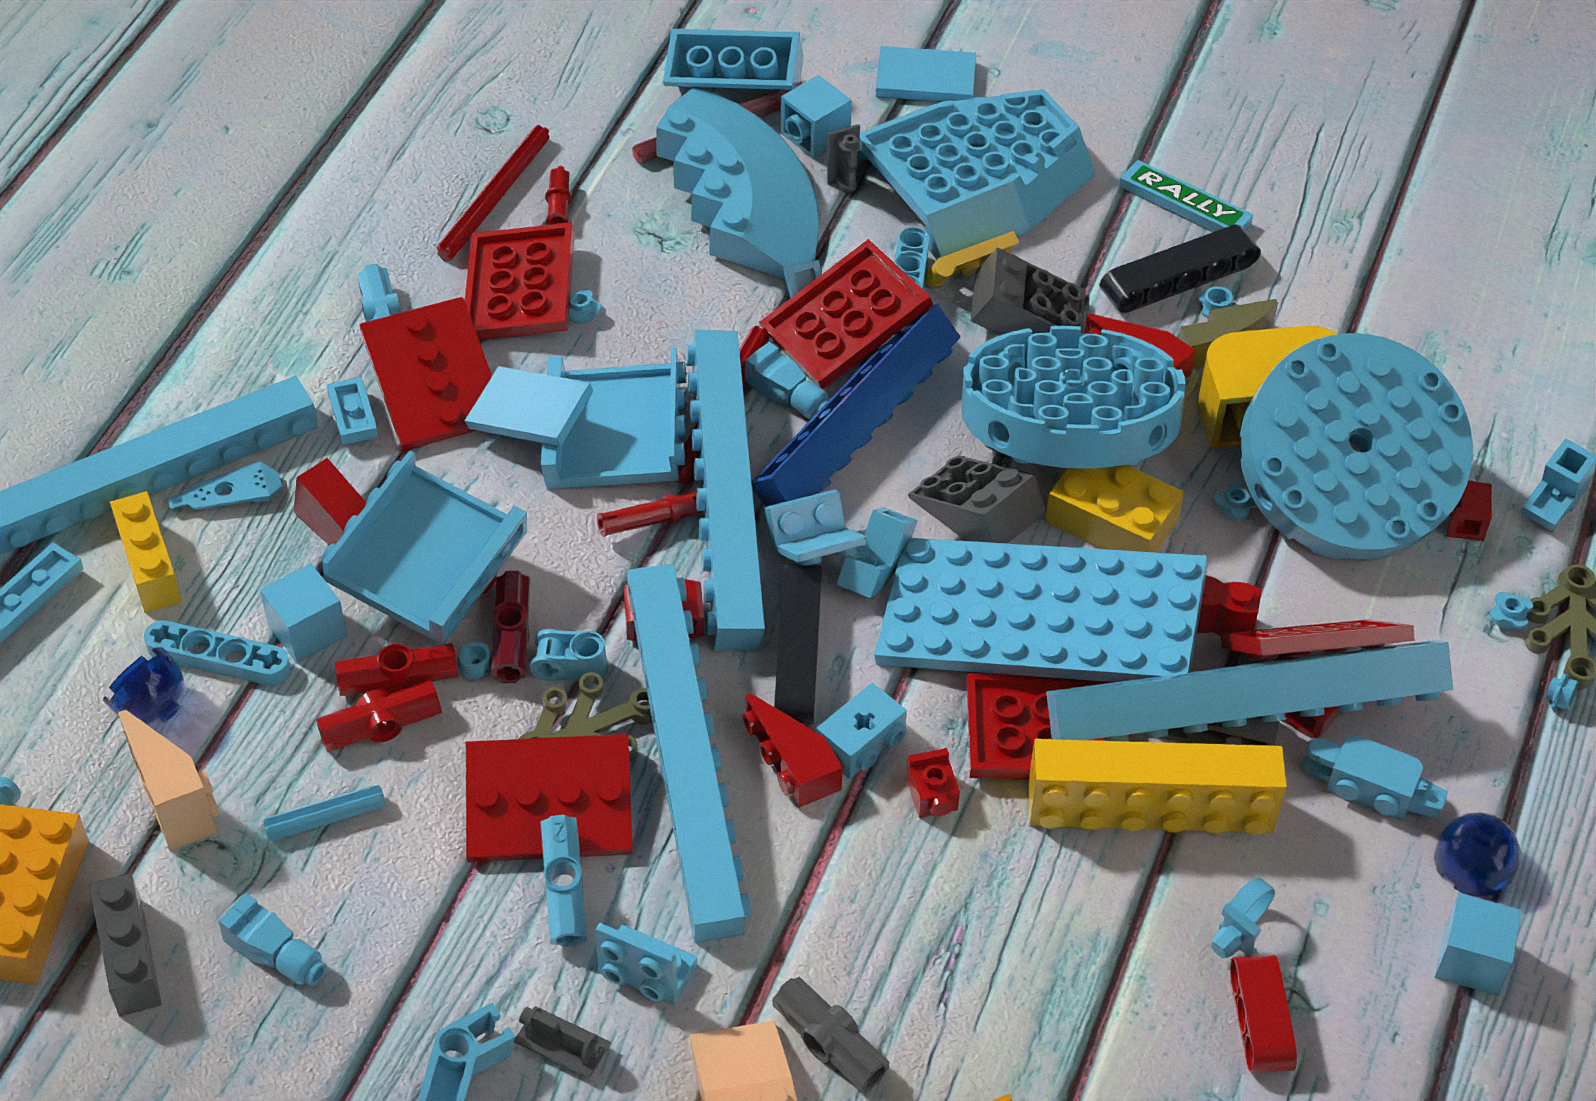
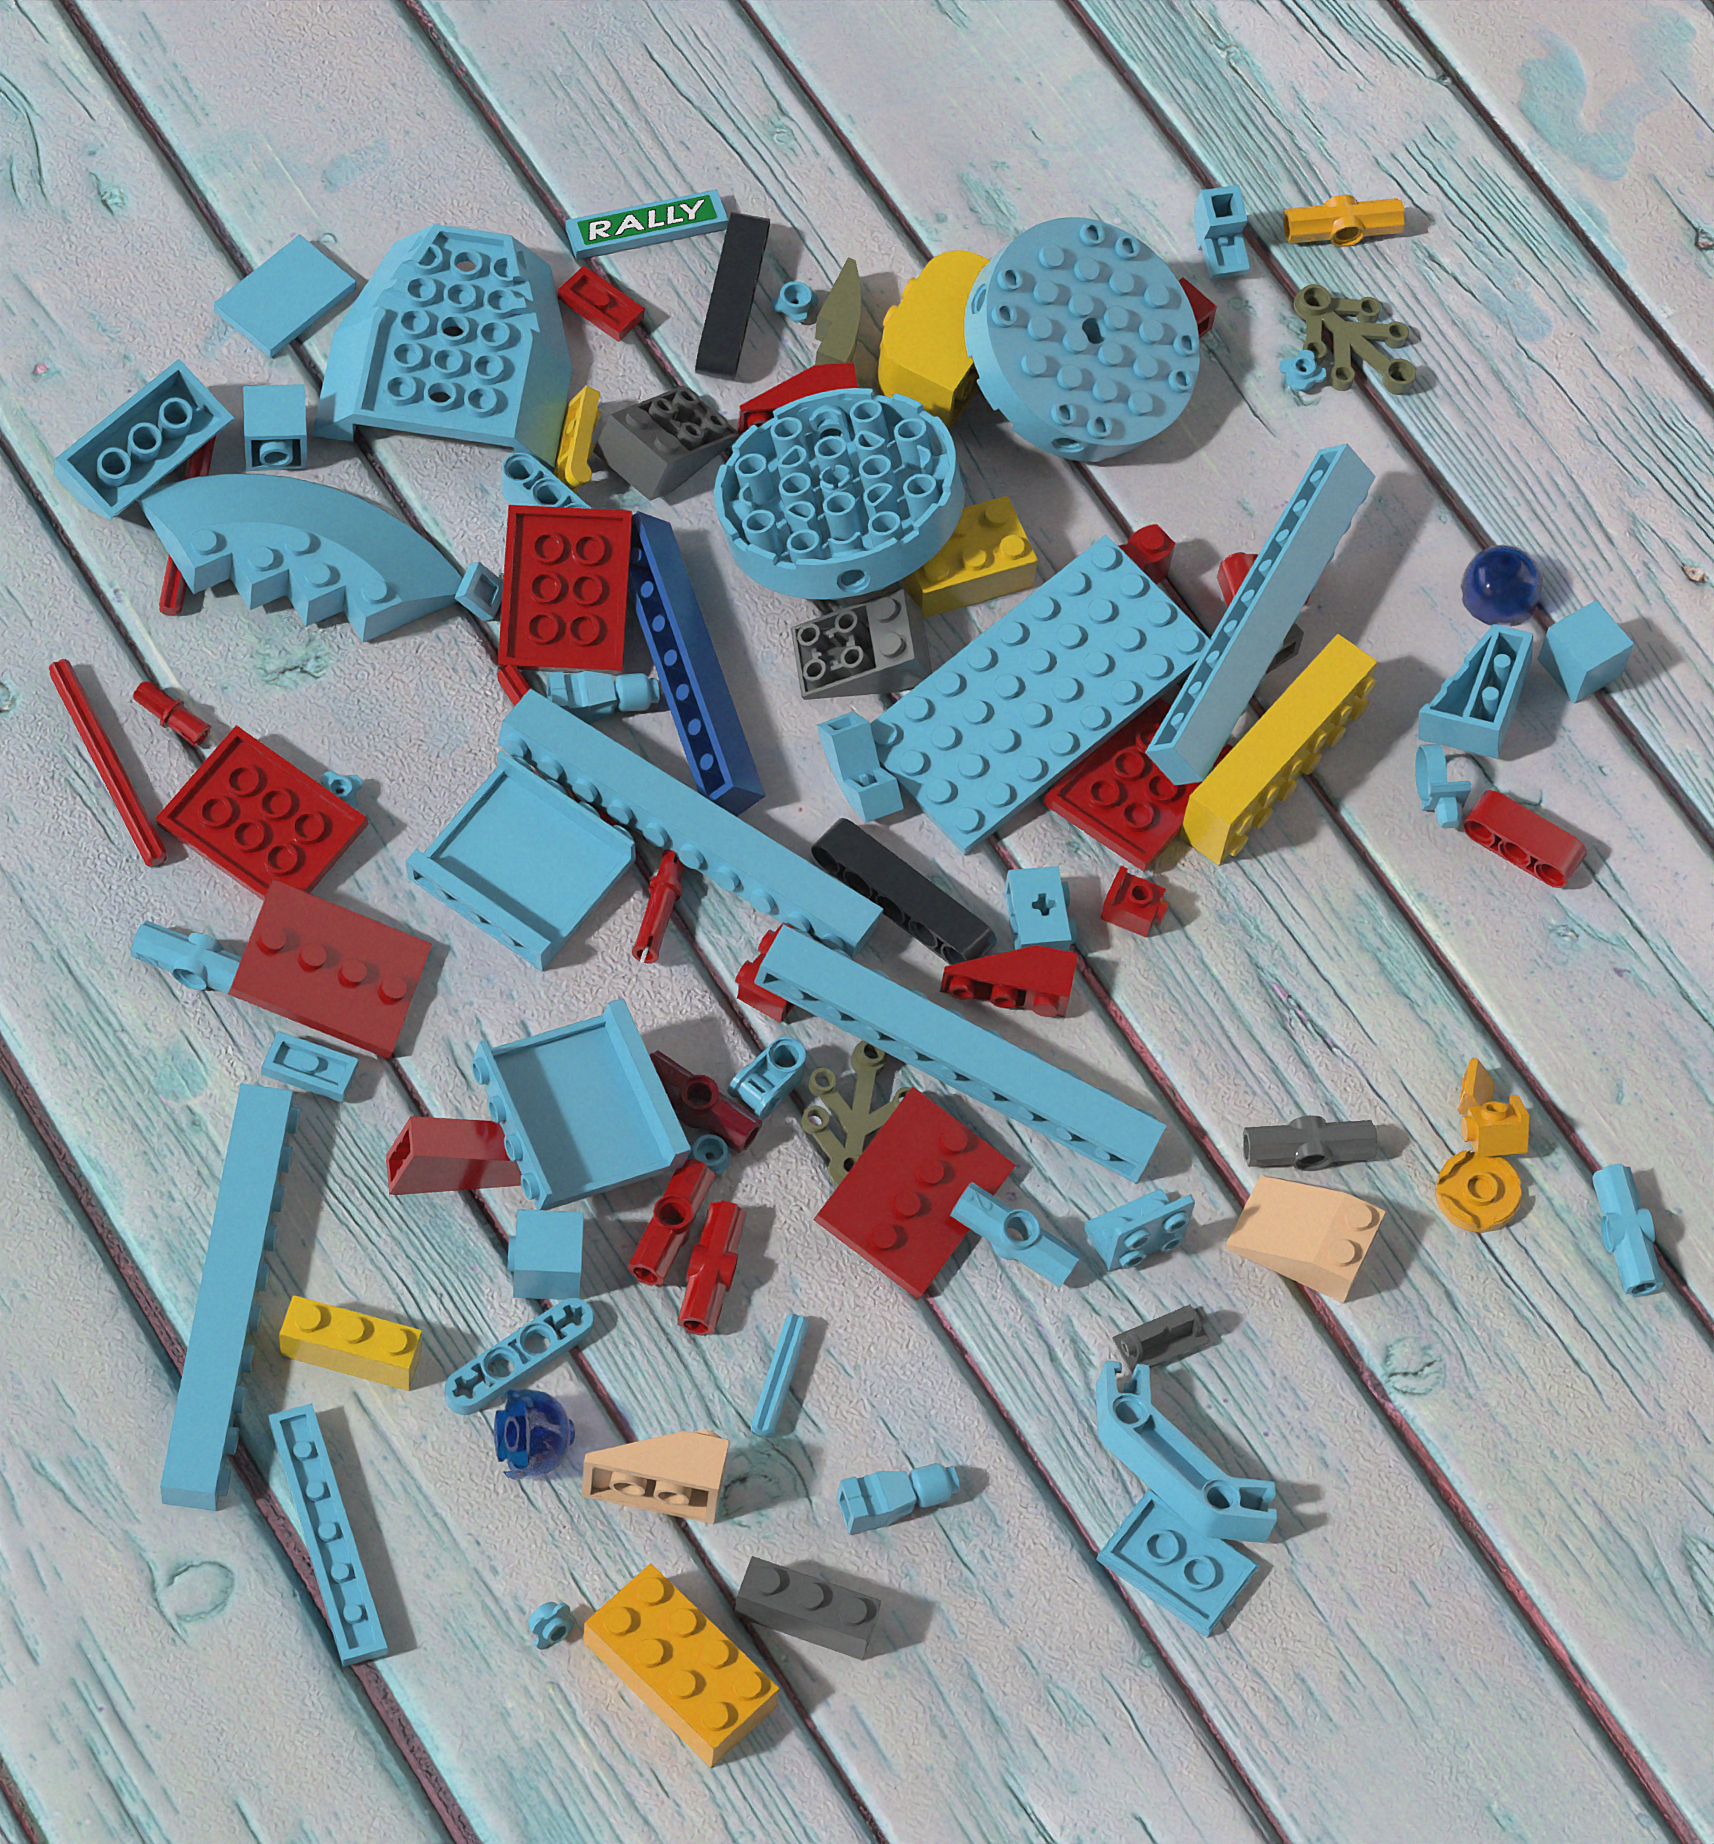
camera: 60 degrees left, 10 degrees up
(249, 483) = (320, 1216): medium azure piece -> none
(529, 406) = (460, 916): medium azure tile -> none
(811, 528) = (803, 803): medium azure bracket -> none
(844, 158) = (366, 445): dark grey hinge -> none
(1095, 211) = (601, 303): none -> red plate
(1235, 502) = (1024, 474): medium azure plate -> none
(1322, 636) = (1239, 525): red plate -> none
(1359, 898) = (1481, 696): none -> medium azure wedge
(1374, 776) = (1382, 594): medium azure hinge -> none
(1562, 692) = (1407, 404): medium azure plate -> none

